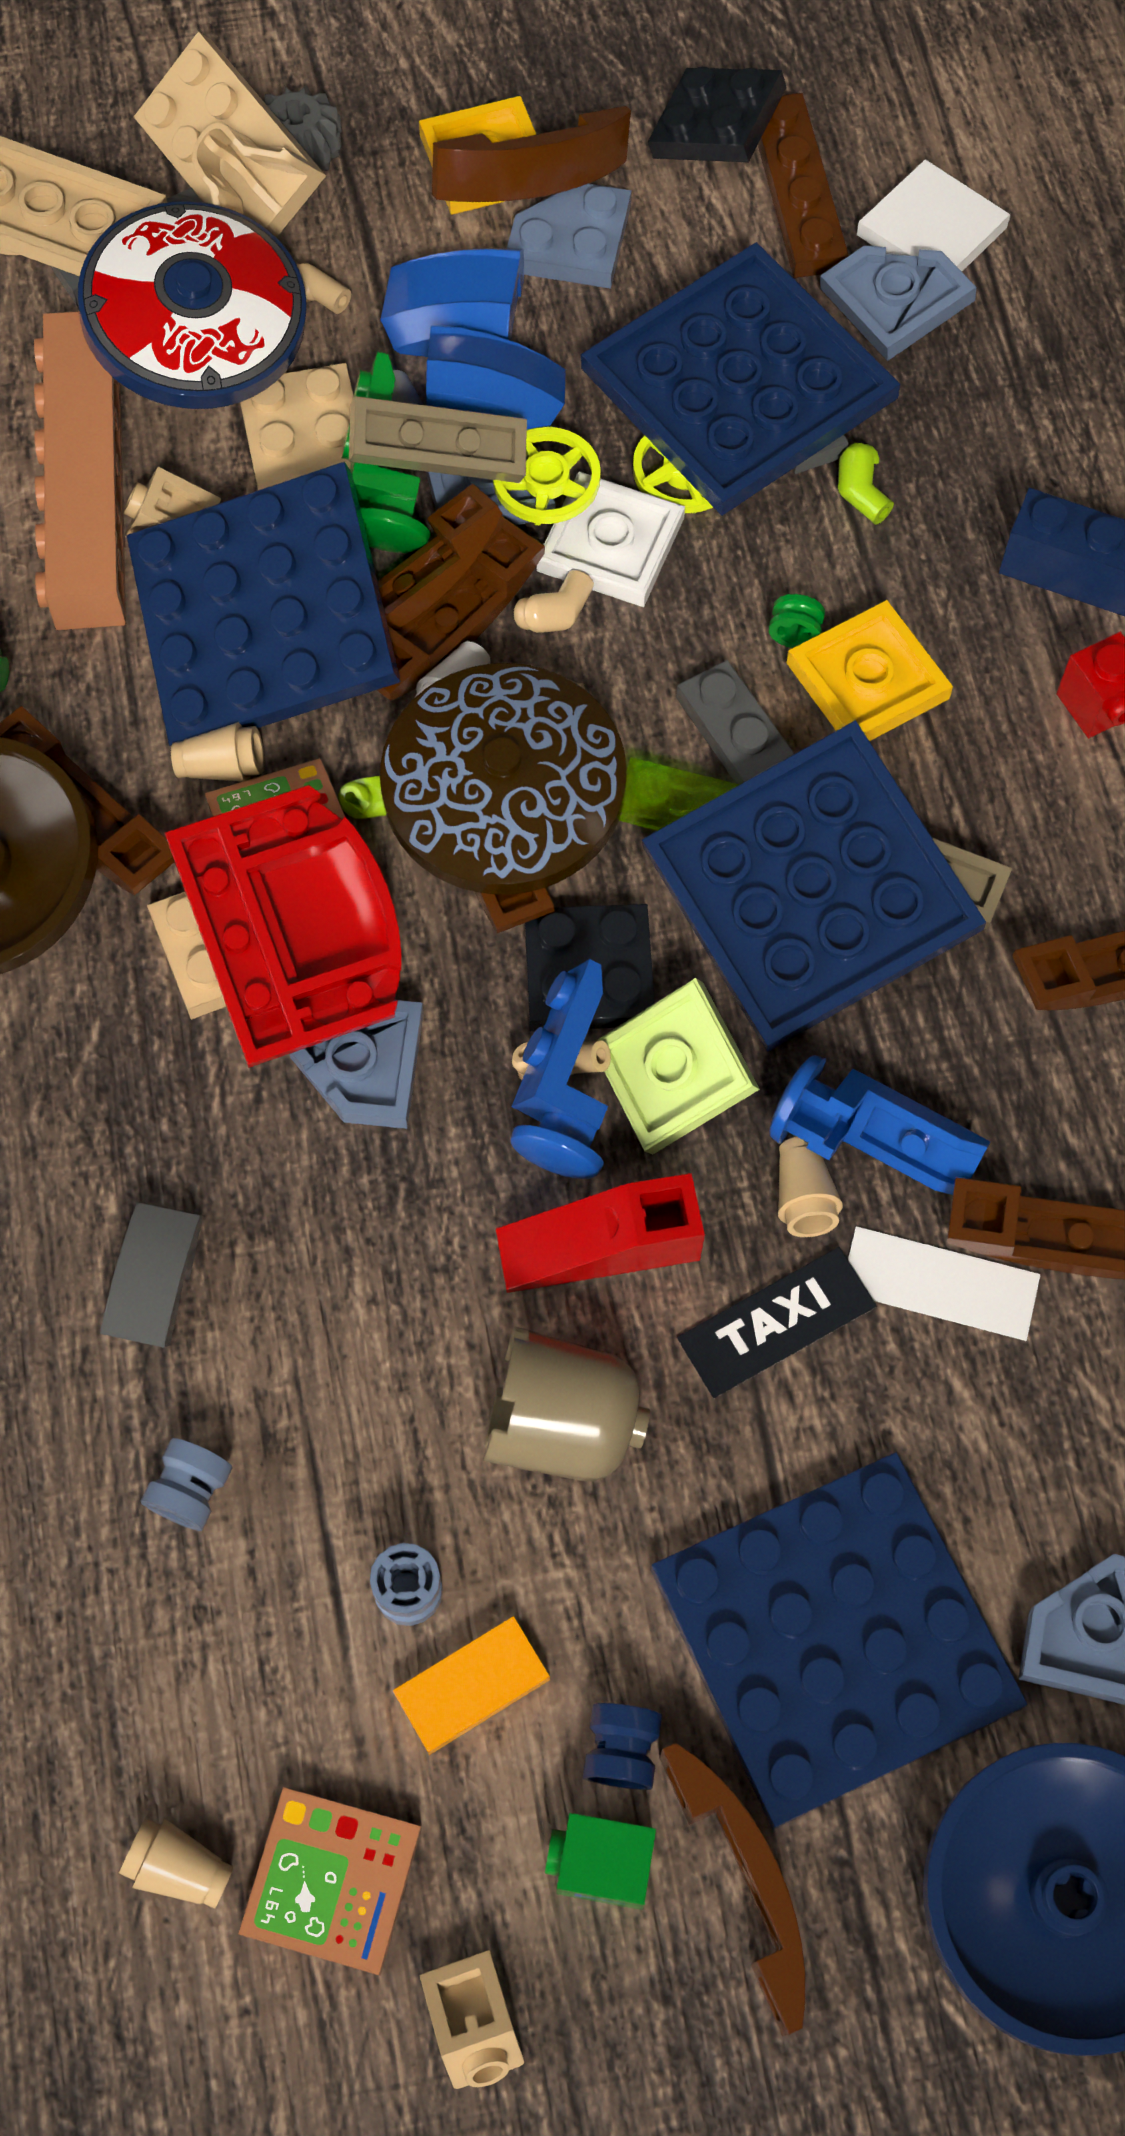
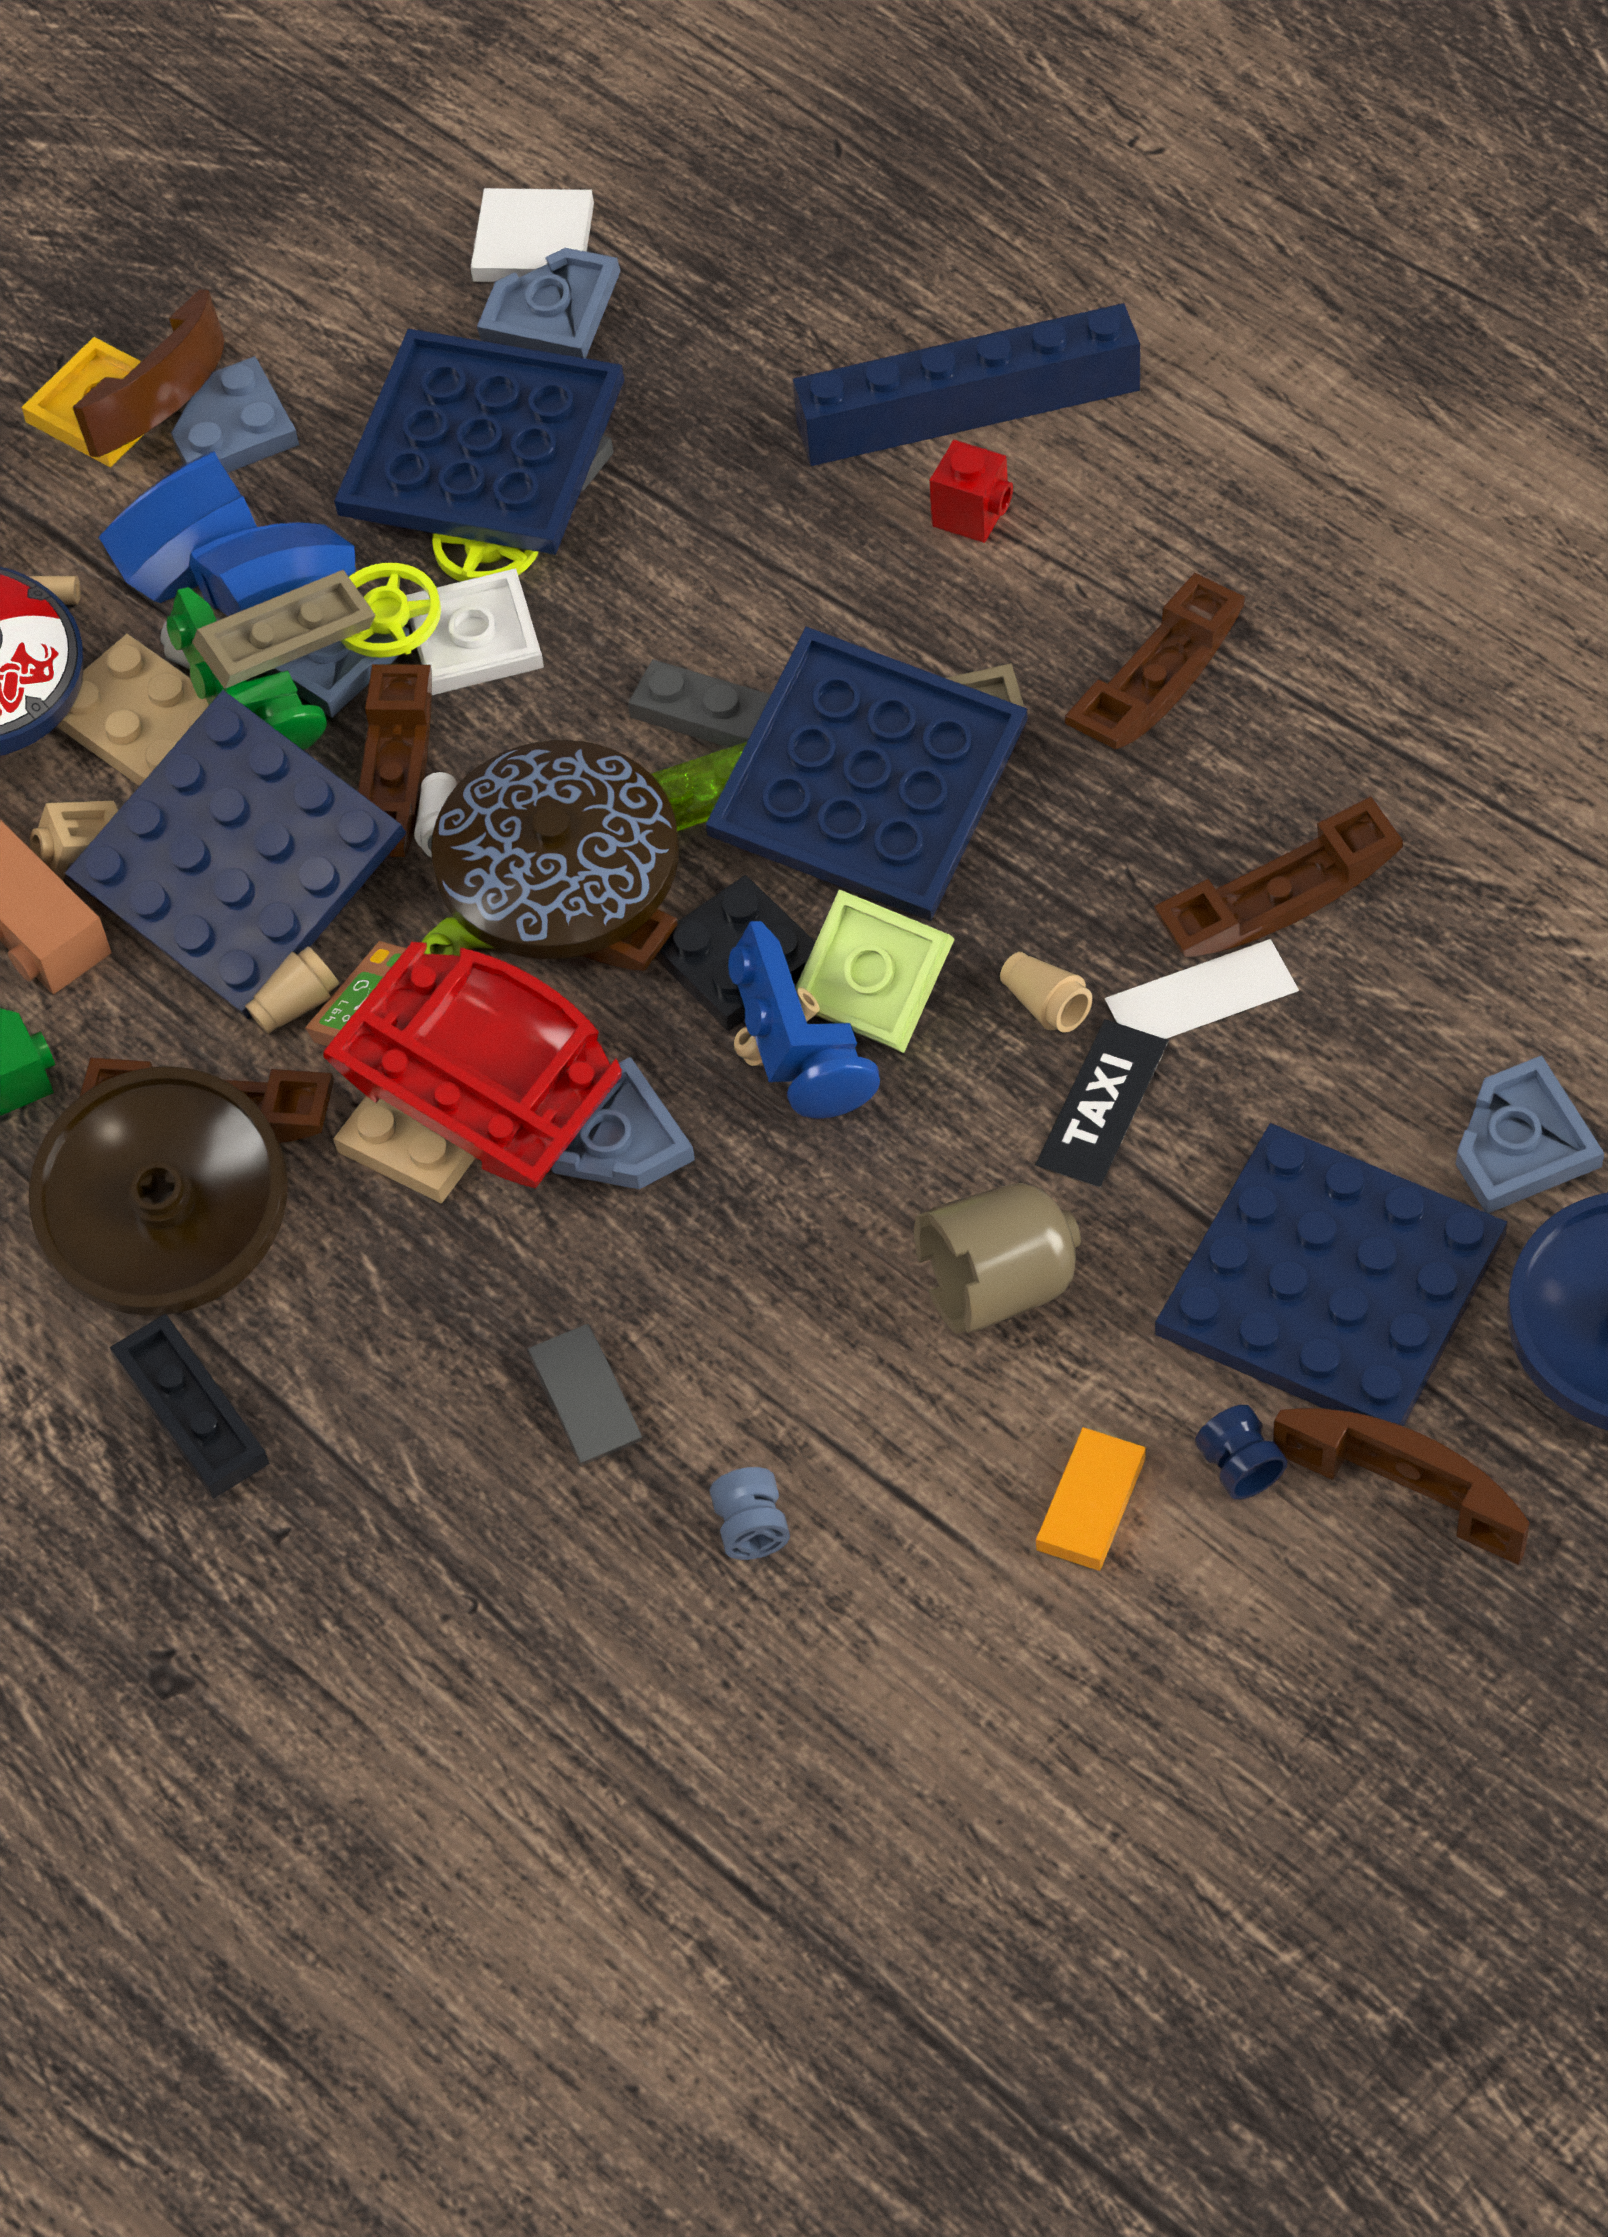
camera: 30 degrees left, 10 degrees down
(175, 1865) = (975, 1769): tan cone -> none
(331, 1881) = (1102, 1700): tile -> none
(414, 1593) = (983, 1477): sand blue wheel -> none
(423, 578) = (357, 698): reddish brown slope -> none
(471, 2021) = (1292, 1705): tan bracket -> none
(555, 610) = (474, 712): tan arm -> none
(602, 1860) = (1294, 1534): green brick -> none
(605, 1235) = (924, 1119): red slope -> none
(717, 114) = (278, 254): black plate -> none
(796, 619) = (684, 596): green bush -> none
(801, 190) = (390, 269): reddish brown plate -> none
(856, 481) = (641, 467): lime arm -> none
(869, 672) = (773, 595): yellow plate -> none
(878, 1124) = (1066, 909): blue piece -> none

